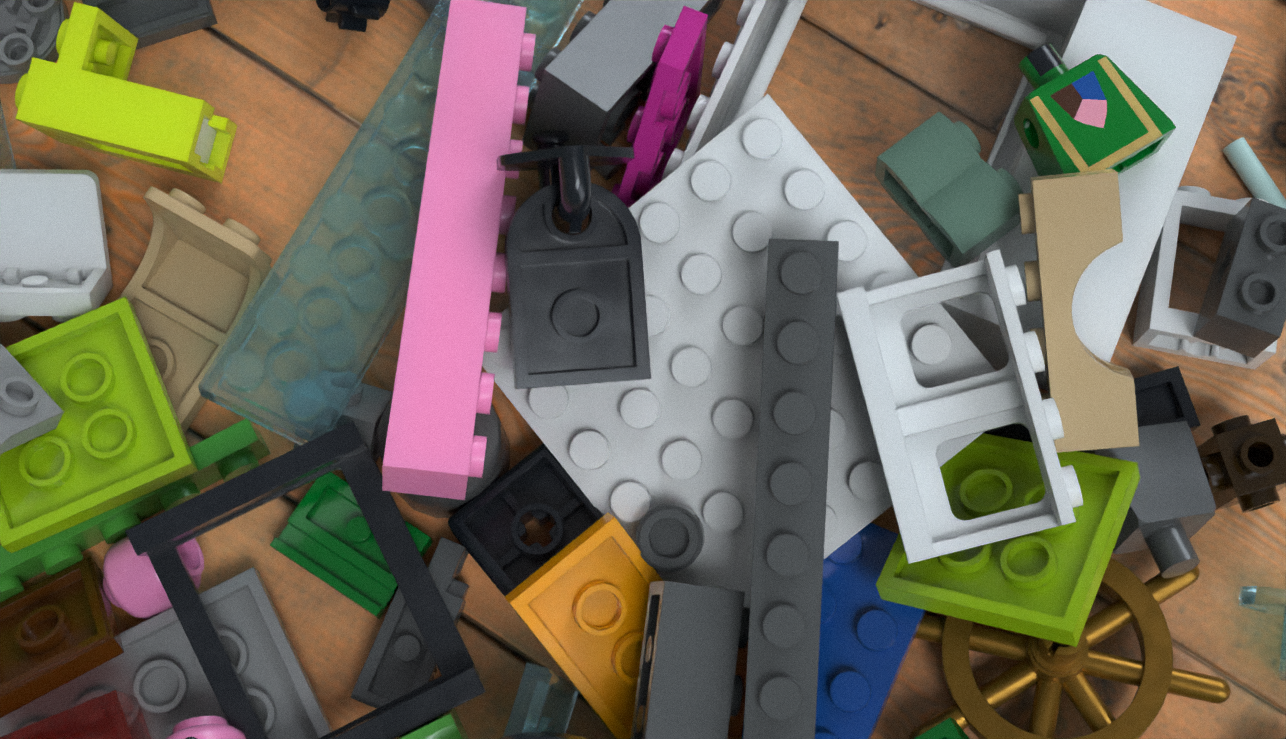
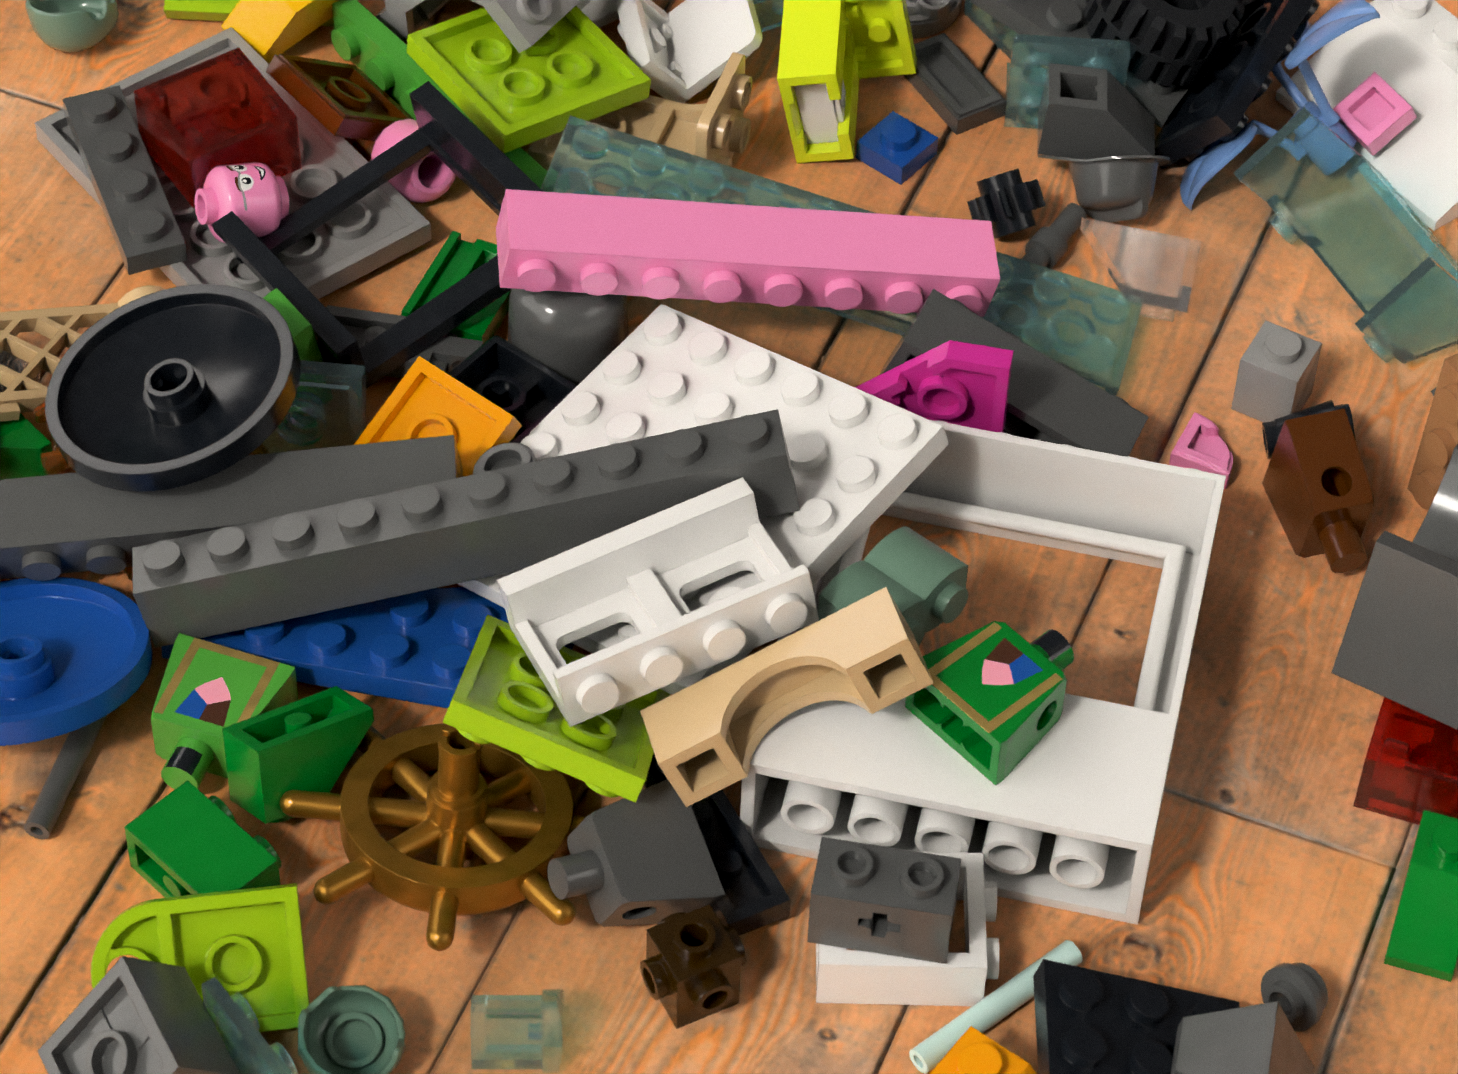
camera: 80 degrees right, 25 degrees down
(231, 80) = (896, 147): none -> blue plate
(570, 295) = (737, 323): black plate -> none

